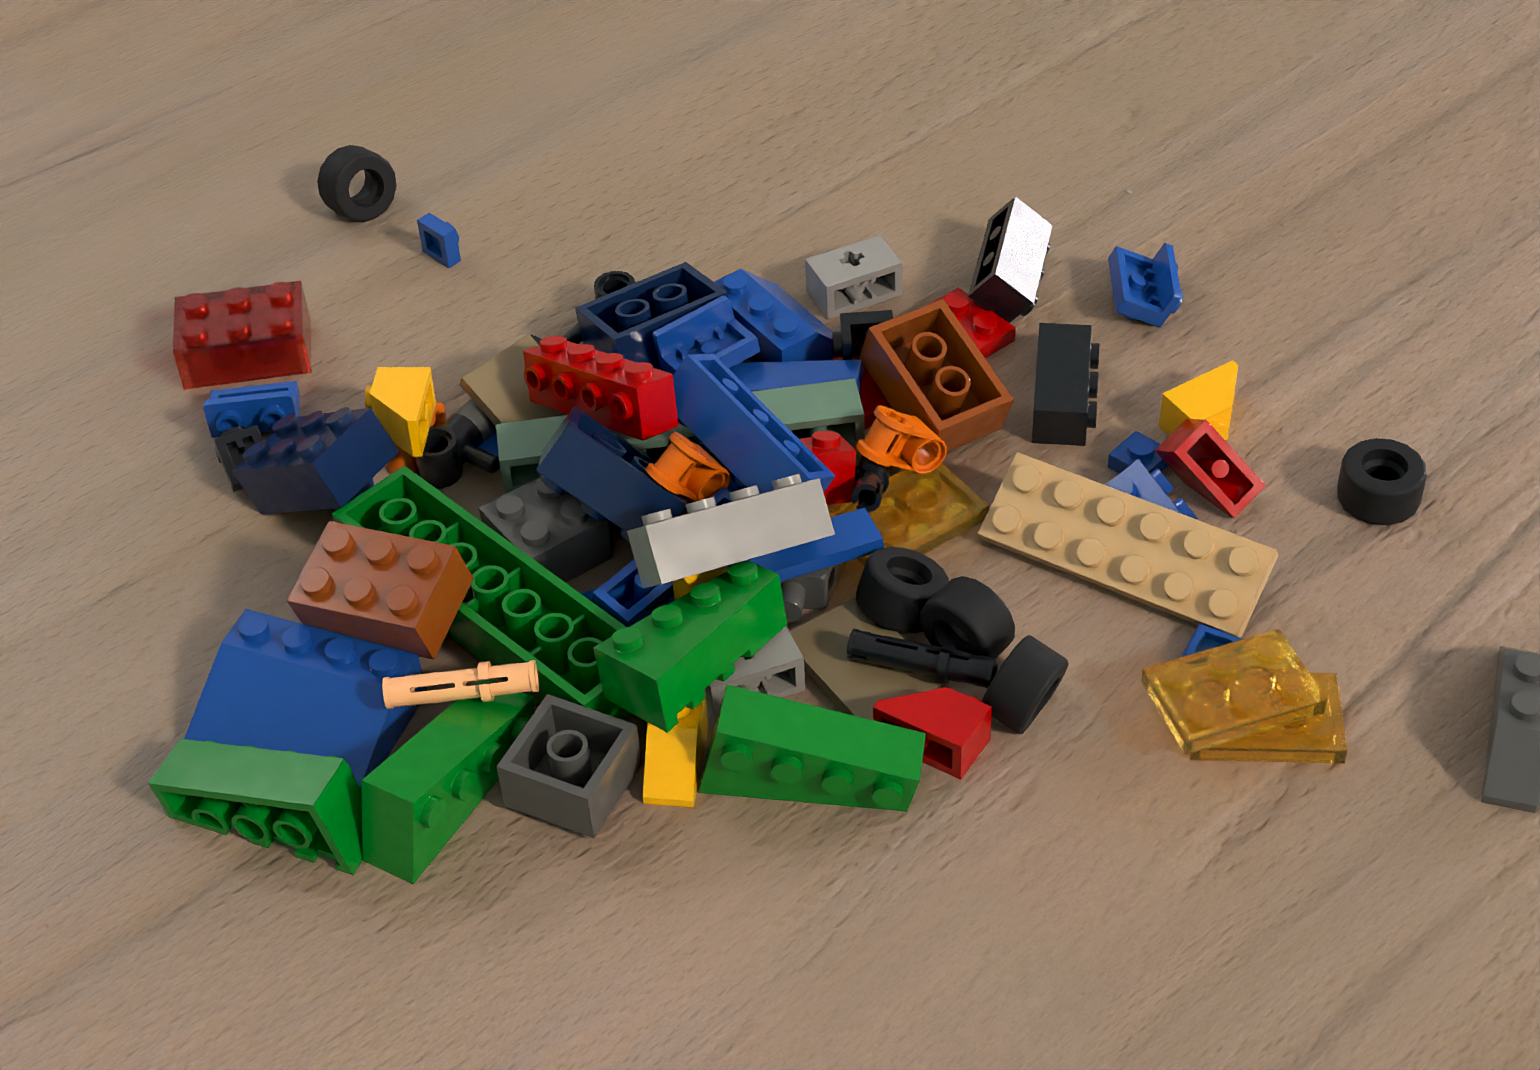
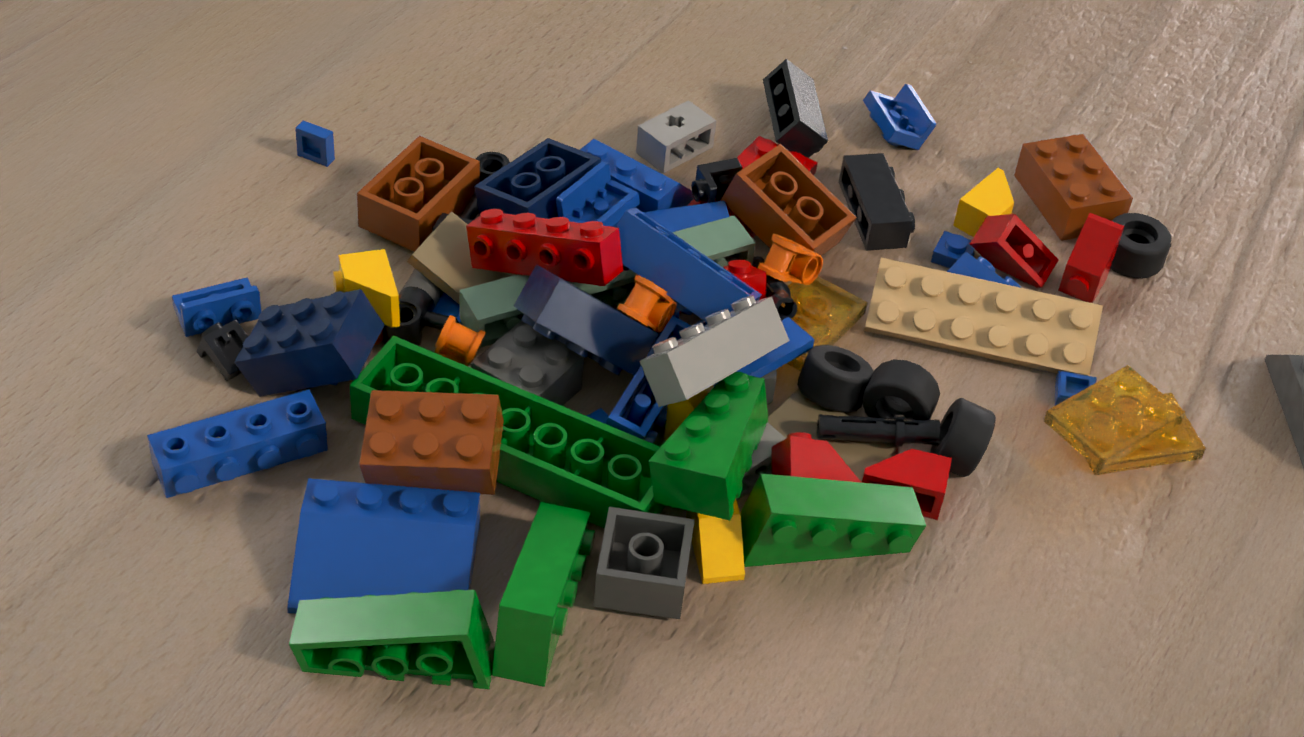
camera: 25 degrees left, 0 degrees up
(205, 560) = (242, 443): none -> blue brick
(242, 335) = (178, 243): clear red brick -> none
(337, 174) = (221, 102): black tyre -> none
(401, 690) = (583, 497): light nougat pin -> none
(471, 483) = (458, 342): none -> orange piece
(520, 298) = (415, 190): none -> dark orange brick
(810, 679) = (809, 458): none -> red slope
(1300, 490) = (1091, 258): none -> red slope
(1328, 393) = (1069, 182): none -> dark orange brick

